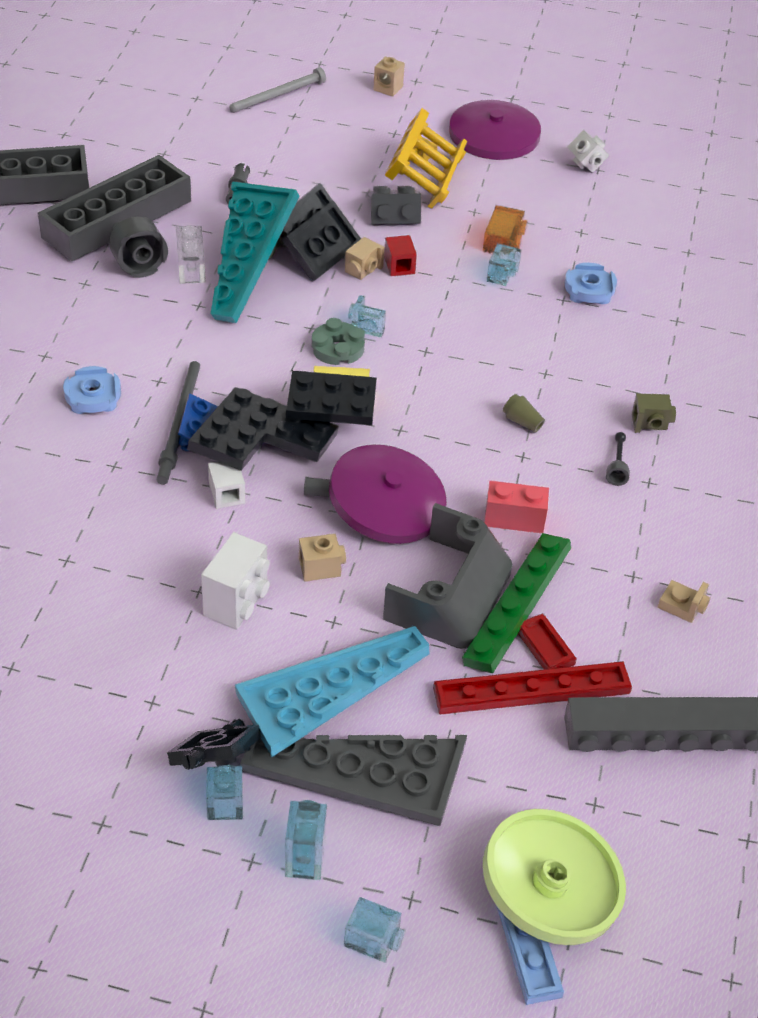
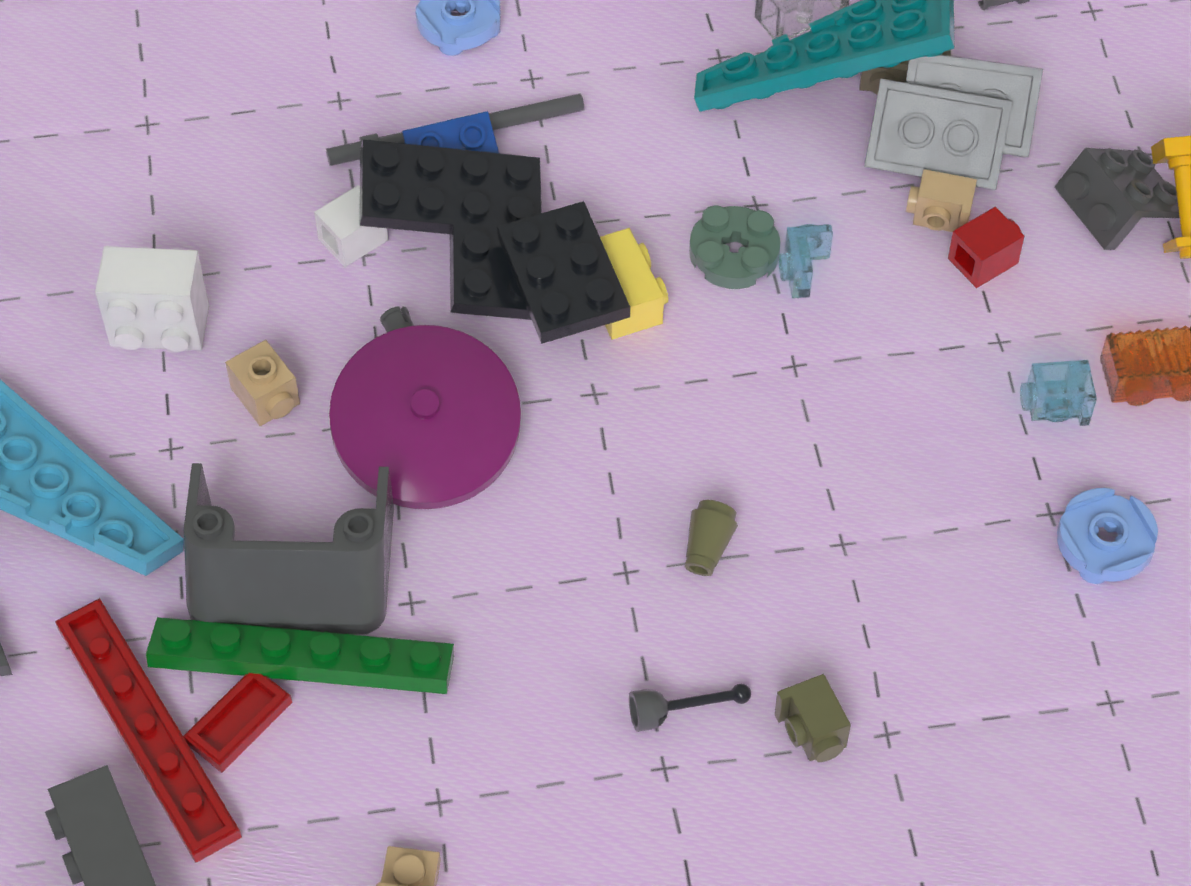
camera: 70 degrees right, 10 degrees up
(516, 506) = (482, 588): coral brick -> none

